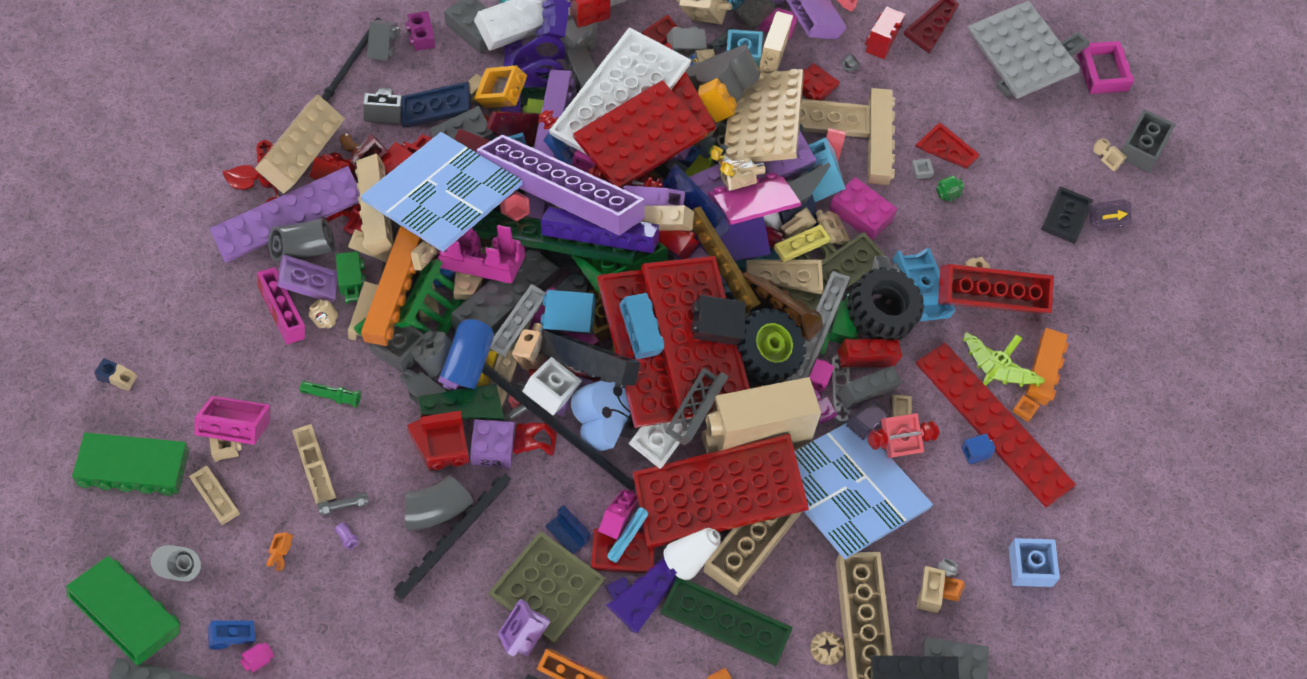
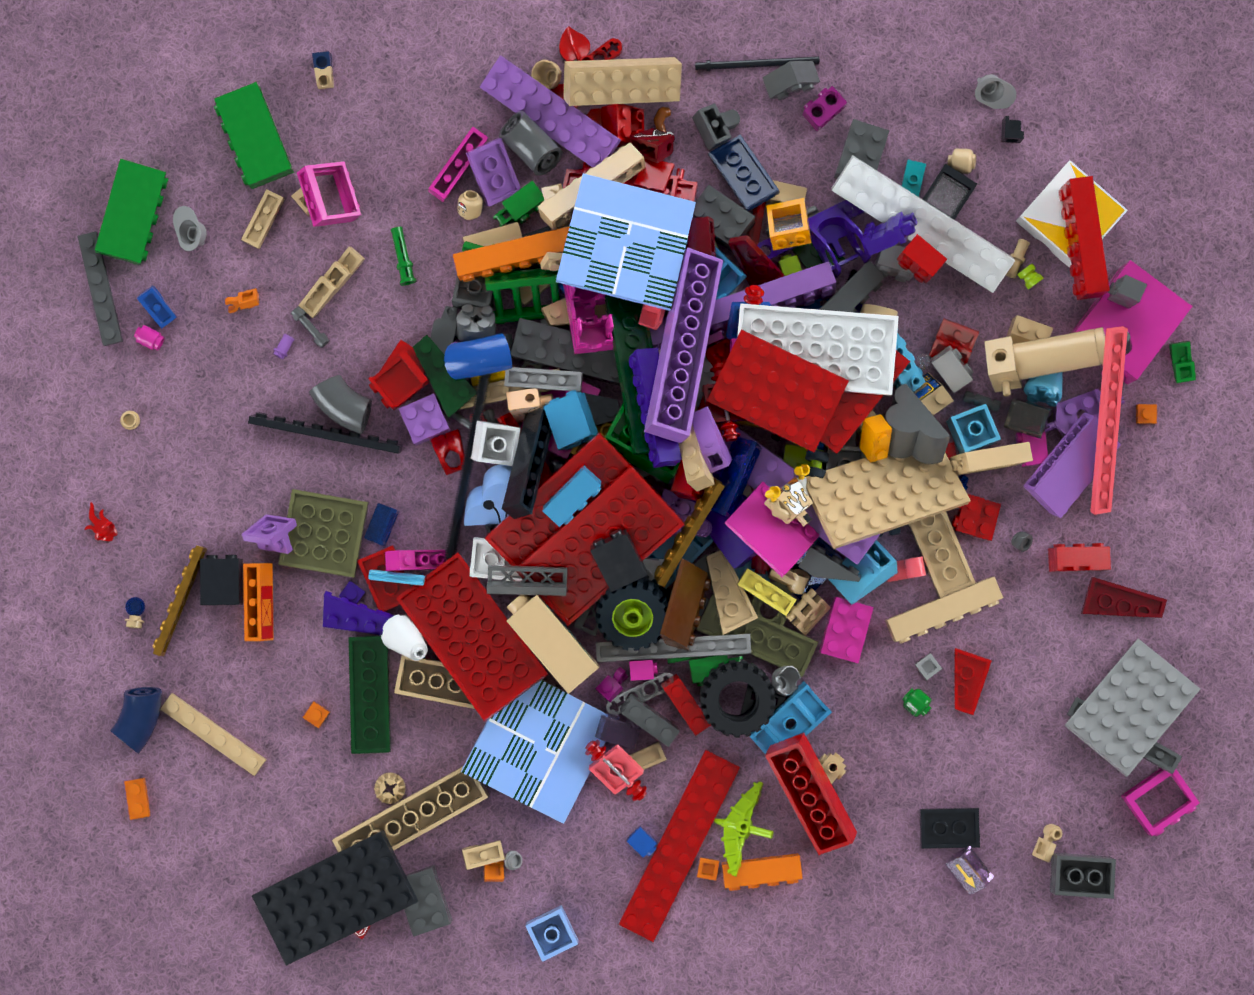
camera: 70 degrees right, 25 degrees up
(250, 200) = (547, 73): none -> tan hair

